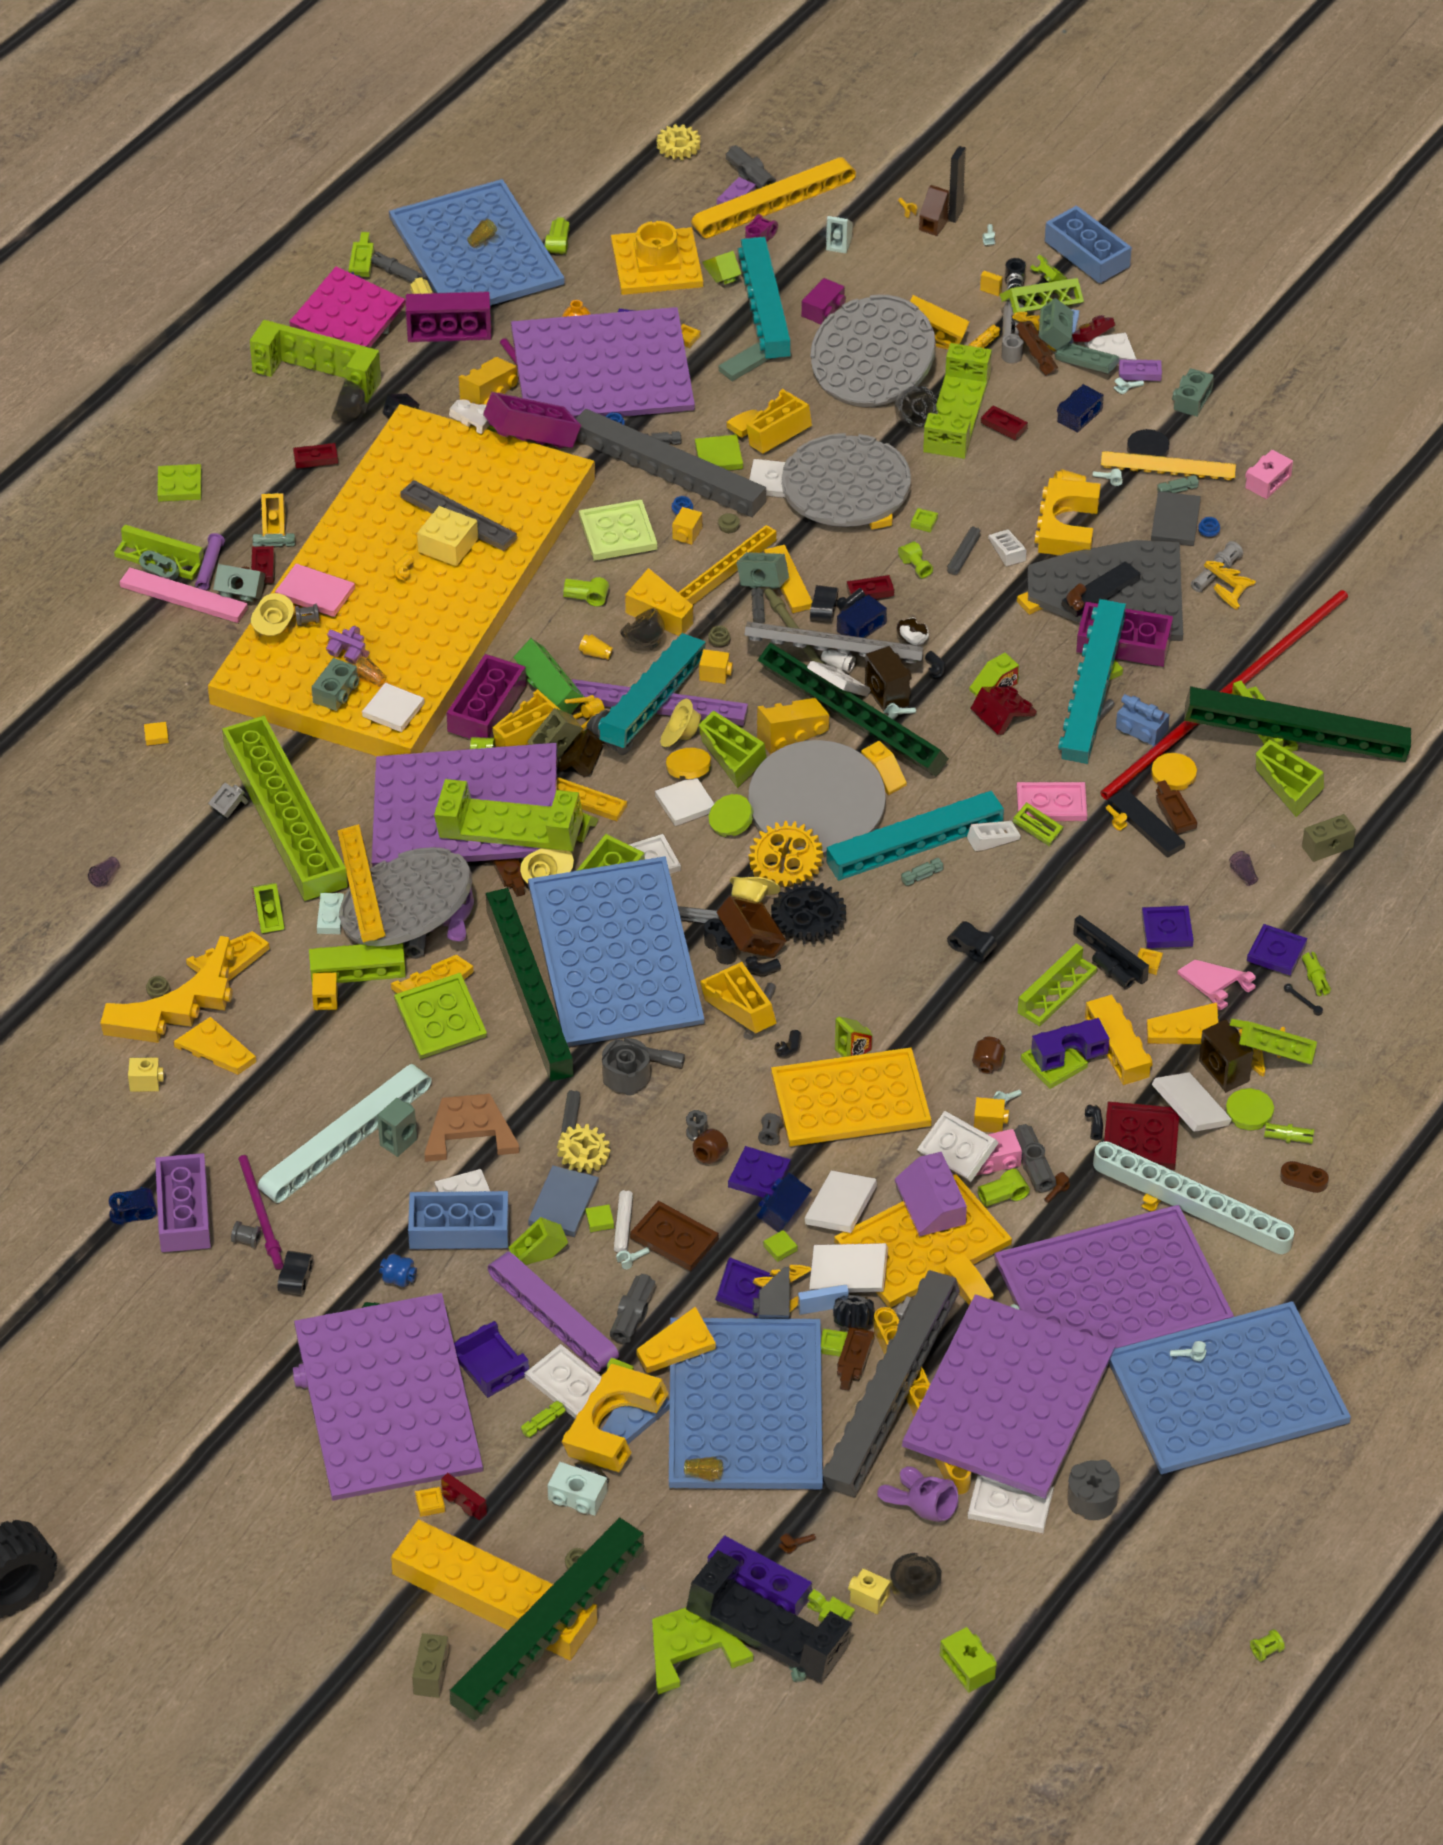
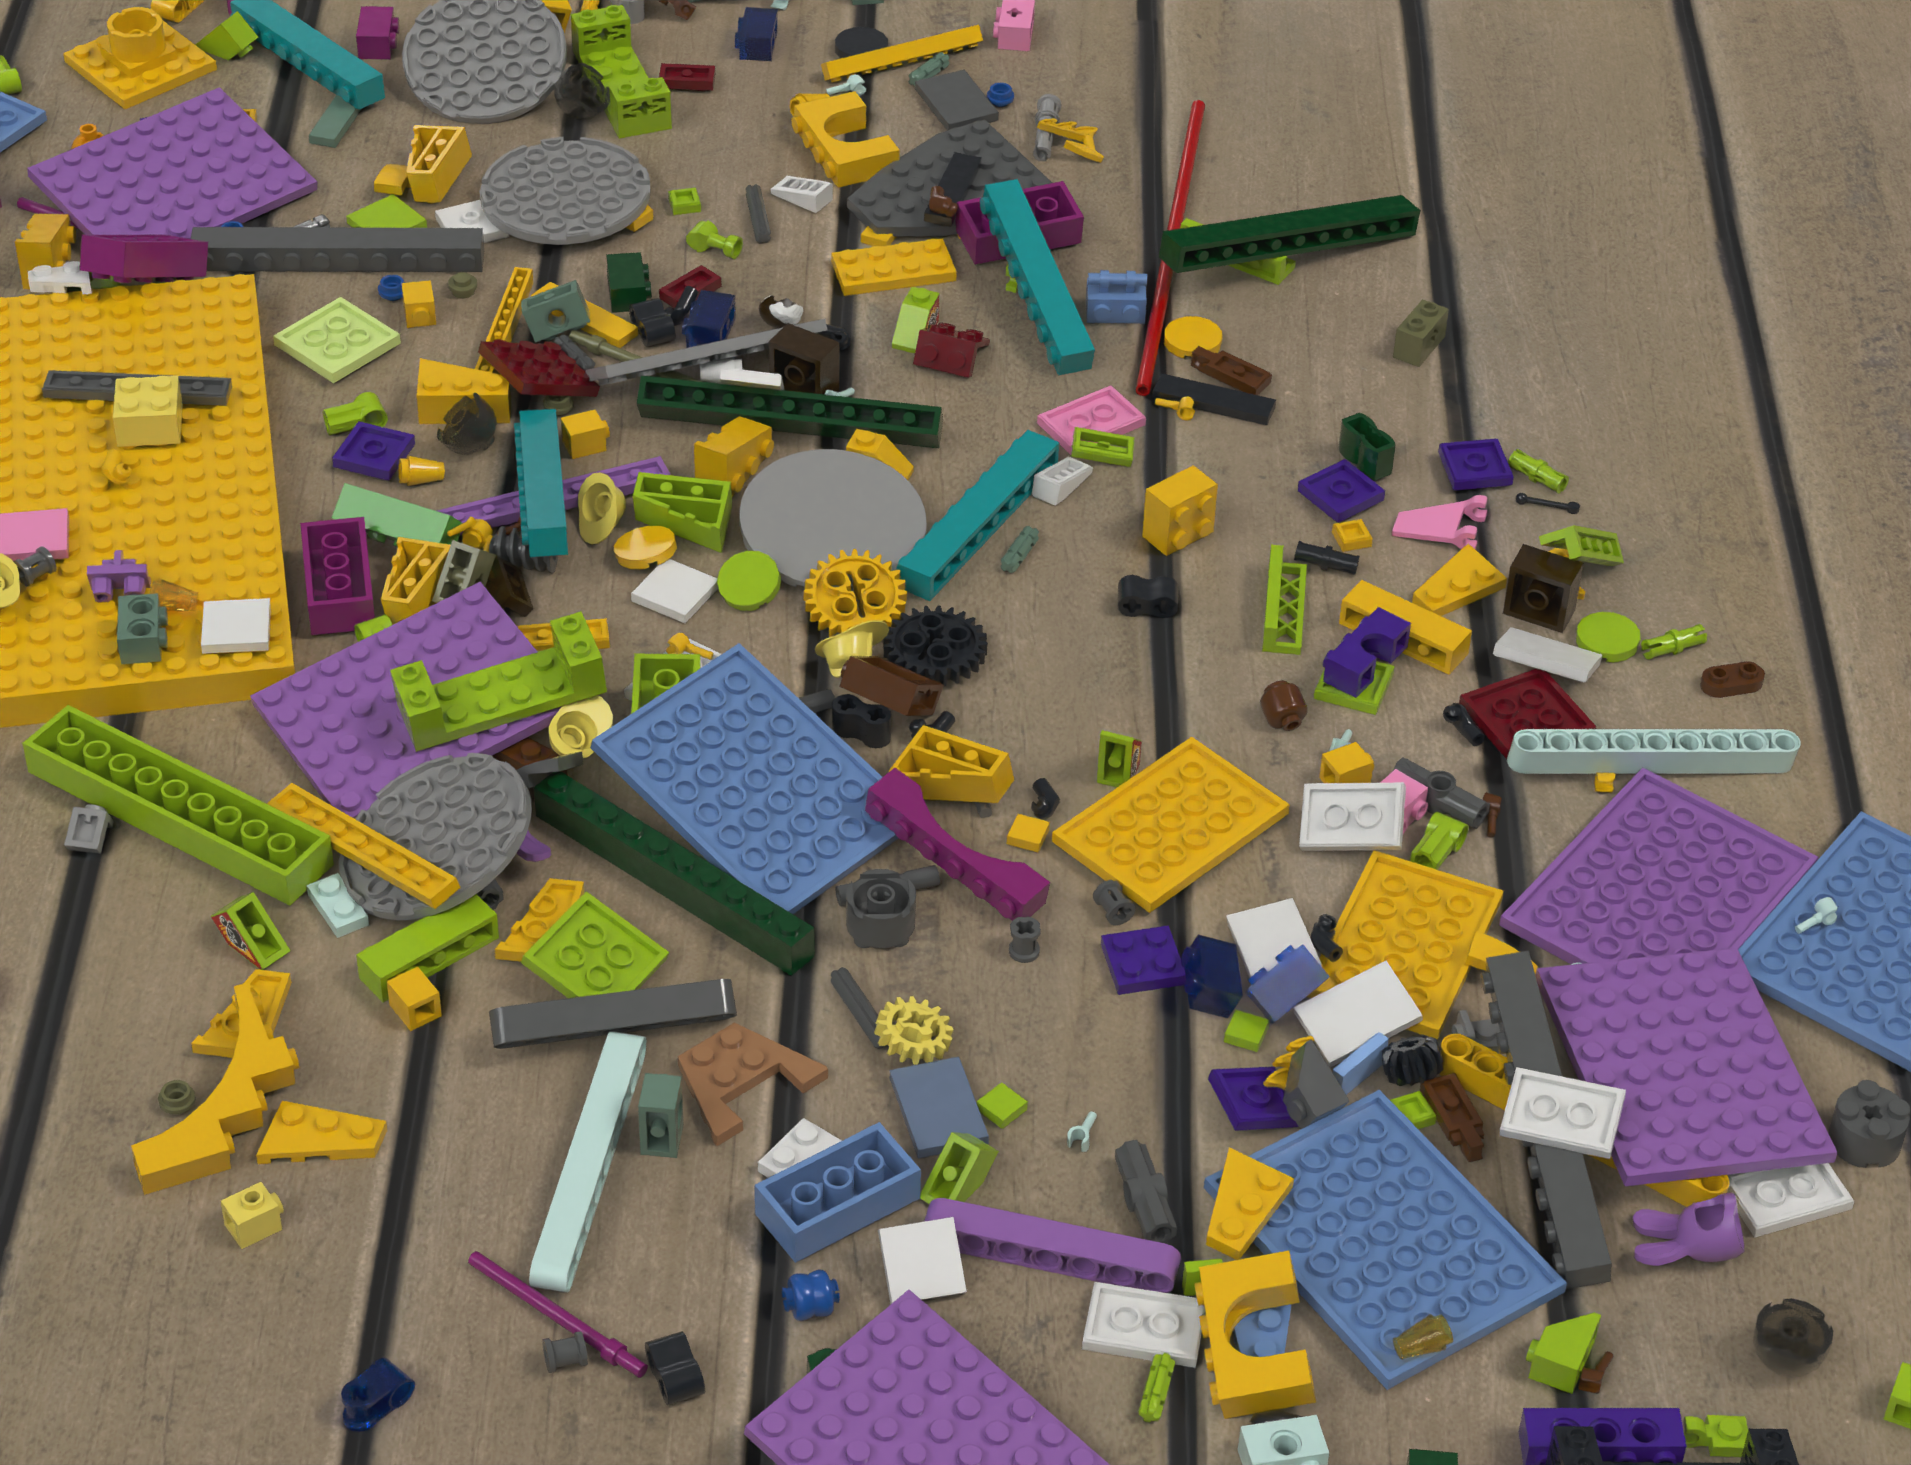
camera: 35 degrees left, 5 degrees down
(182, 1202) = (448, 1352): medium lavender brick -> none
(421, 1054) = (612, 1012): none -> dark grey beam
(472, 1282) = (922, 1259): none -> white tile
(488, 884) = (538, 771): none -> dark grey slope
(490, 1359) = (1029, 1348): dark purple panel -> none
(578, 619) = (373, 450): none -> dark purple plate
(623, 1221) = (1035, 1095): white axle -> none
(650, 839) = (681, 643): none -> yellow hand
(674, 1235) = (1114, 1080): reddish brown plate -> none
(710, 1146) = (1063, 955): reddish brown head -> none
(714, 1087) = (1005, 885): none -> magenta arch
(718, 607) = (538, 368): none -> dark red plate
(761, 1061) = (1028, 833): none -> yellow tile
(786, 1517) = (1563, 1351): none -> lime slope
(817, 1228) = (1286, 983): none -> clear blue brick
(832, 565) = (627, 280): none -> dark green brick
(869, 1211) = (1323, 935): none -> black arm
(869, 1591) = (1742, 1384): light yellow brick -> none
(892, 1383) = (1562, 1112): none -> white tile
(931, 1195) = (1379, 881): medium lavender slope -> none
(1020, 630) = (893, 266): none -> yellow plate
(1038, 892) = (1179, 510): none -> yellow brick
(1098, 940) = (1264, 531): black tile -> none
(1208, 903) = (1367, 446): none -> dark green brick
(1243, 867) = (1360, 398): cone -> none
(1289, 776) = (1322, 289): lime wedge -> none

